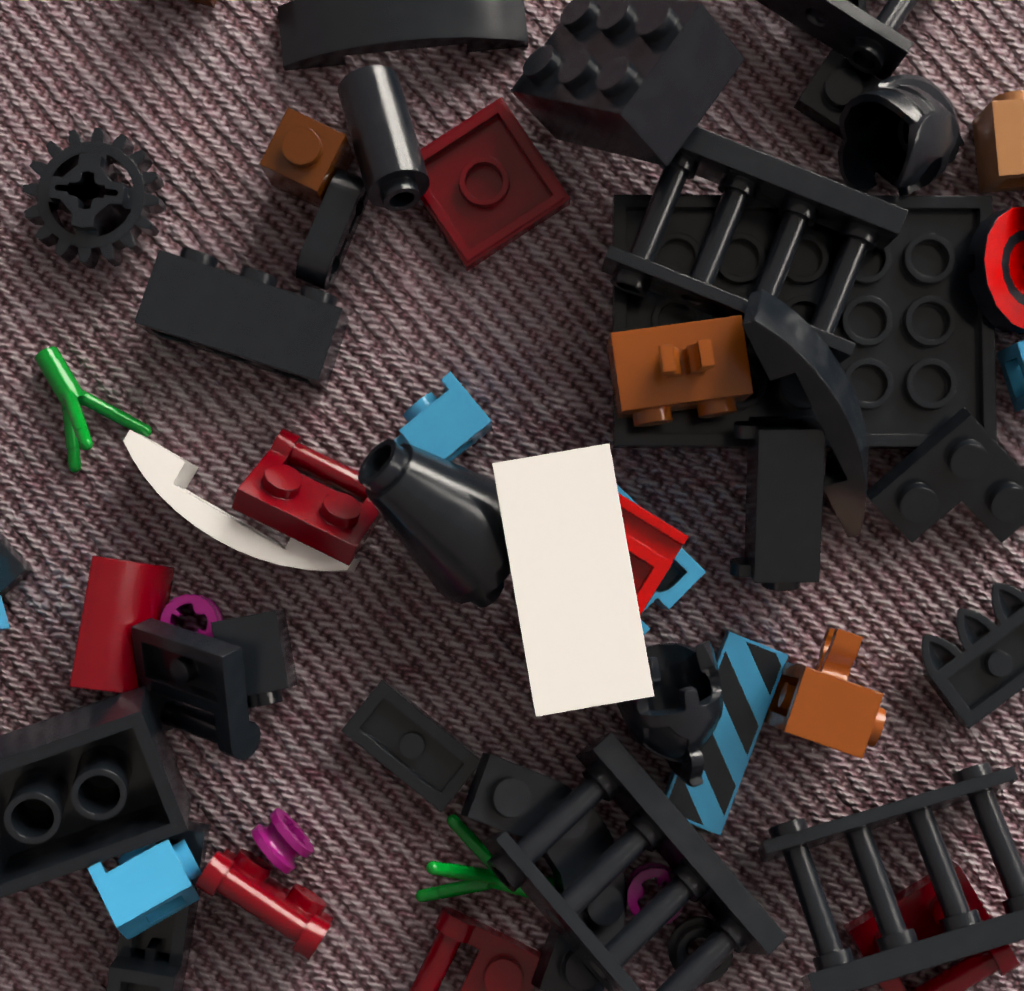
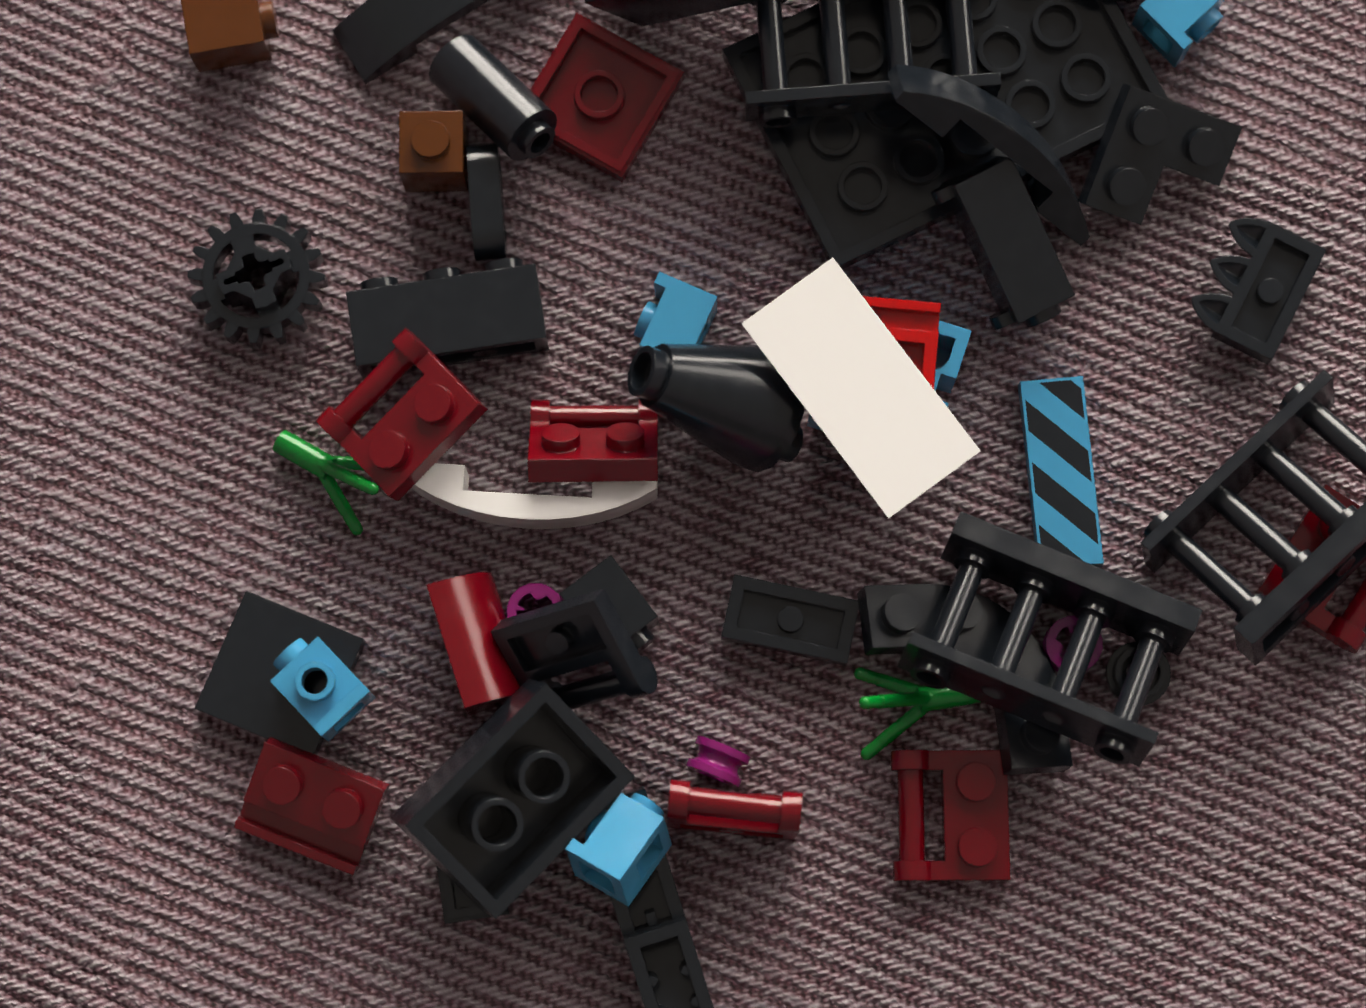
camera: 25 degrees left, 5 degrees down
(155, 407) = (415, 428): none -> dark red plate
(679, 369) = (859, 171): dark orange brick -> none
(683, 707) = (1012, 466): black helmet -> none
(824, 704) = (1133, 395): dark orange brick -> none

